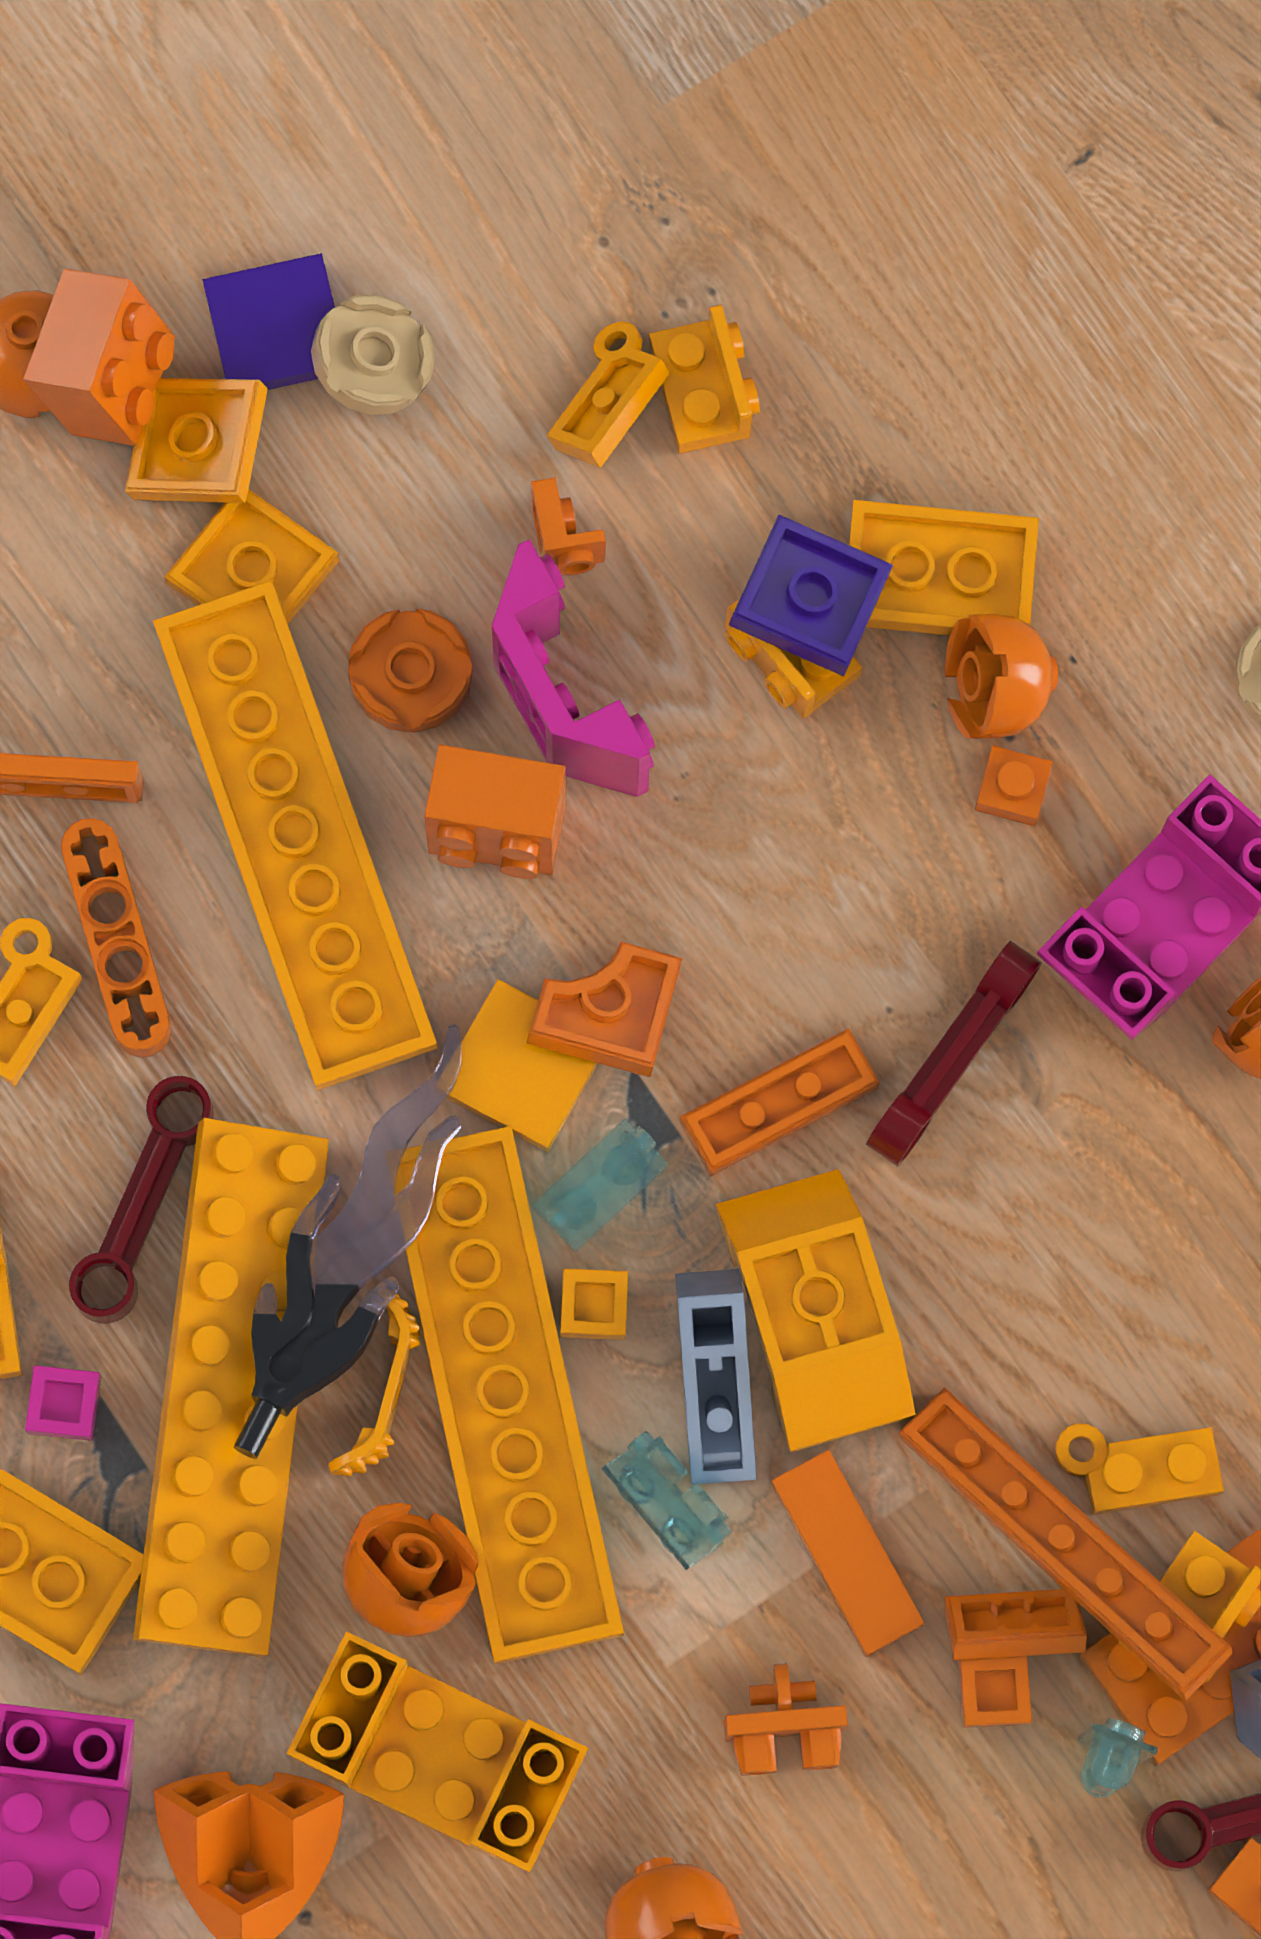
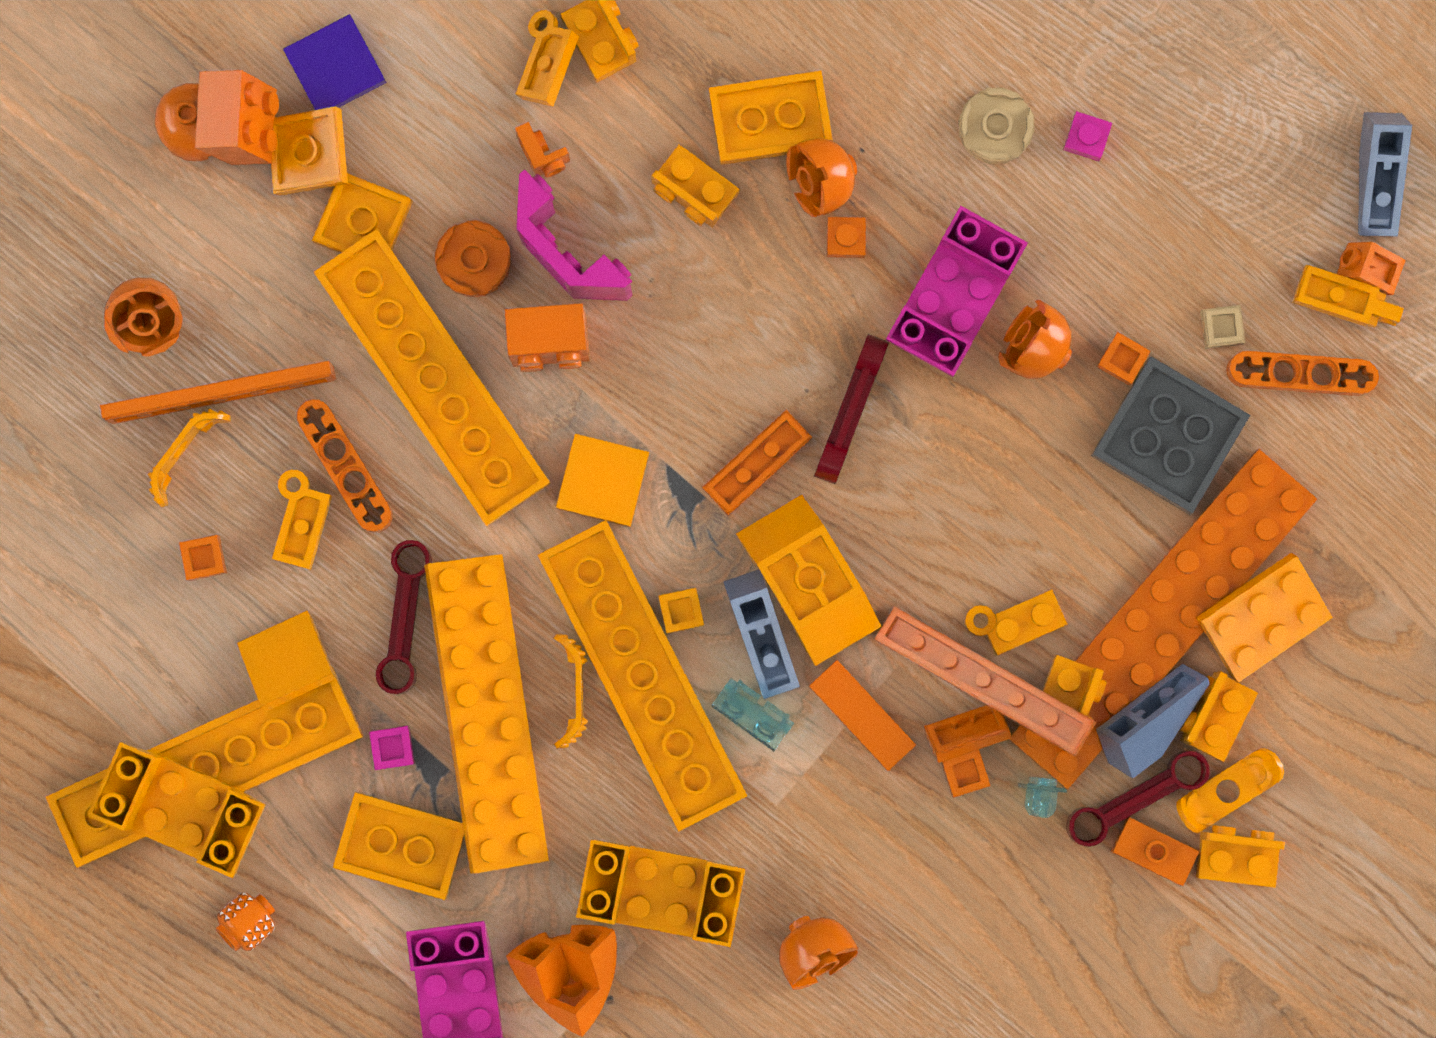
camera: 15 degrees left, 10 degrees up
(330, 1268) = (525, 630): piece -> none
(372, 355) = (398, 70): tan tile -> none
(408, 1570) = (616, 794): orange cylinder -> none
(601, 1184) = (666, 539): clear light blue hinge -> none
(612, 1014) = (647, 437): orange tile -> none
(810, 595) = (699, 155): dark purple tile -> none
(816, 1727) = (836, 833): orange hips -> none

